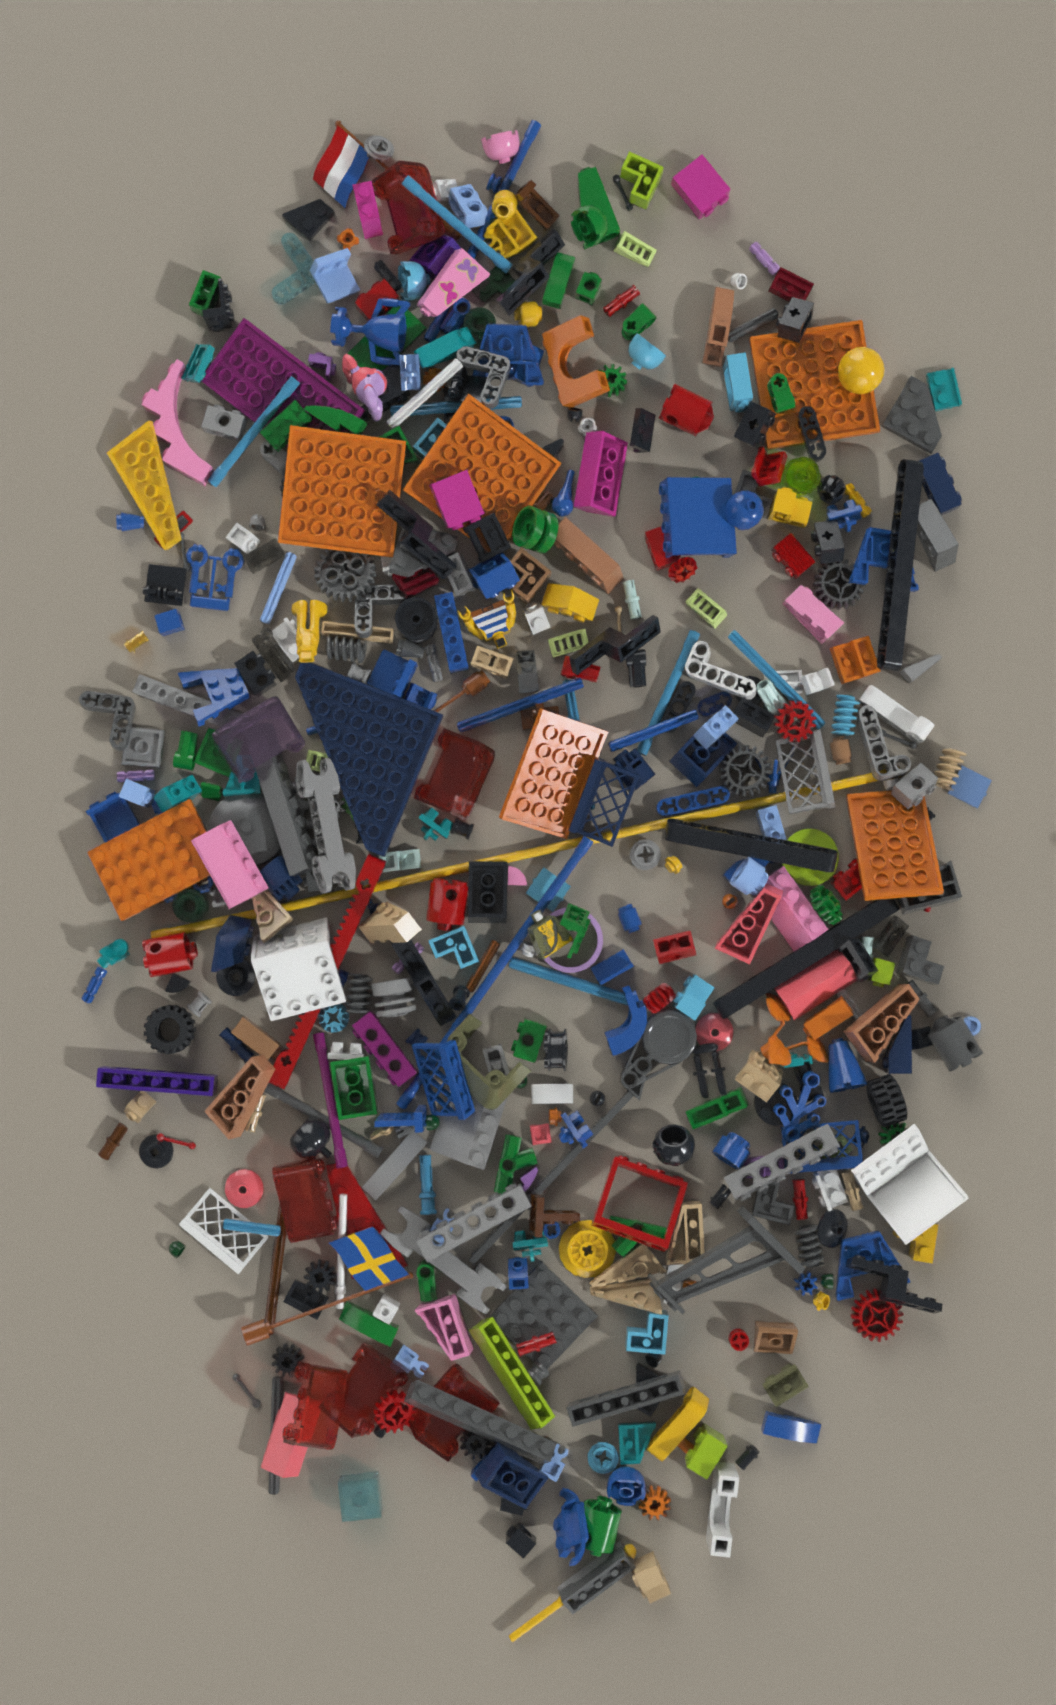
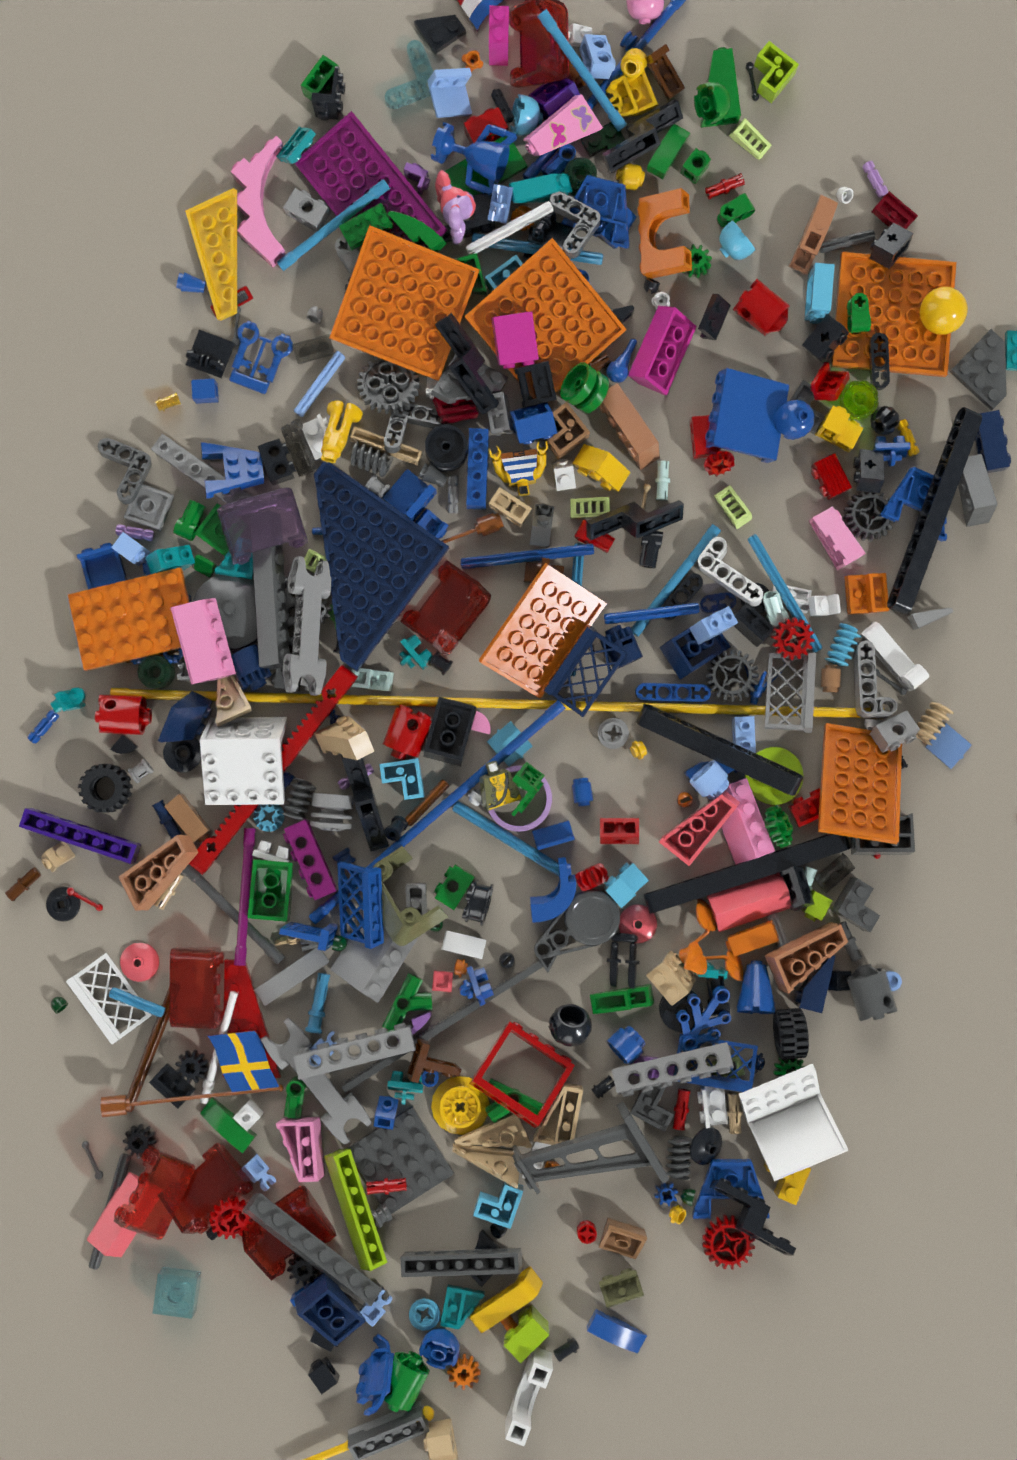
camera: 15 degrees right, 0 degrees up
(243, 538) = (297, 327): white bracket -> none
(311, 1139) = (216, 930): black piece -> none
(701, 187) = (830, 94): dark pink brick -> none

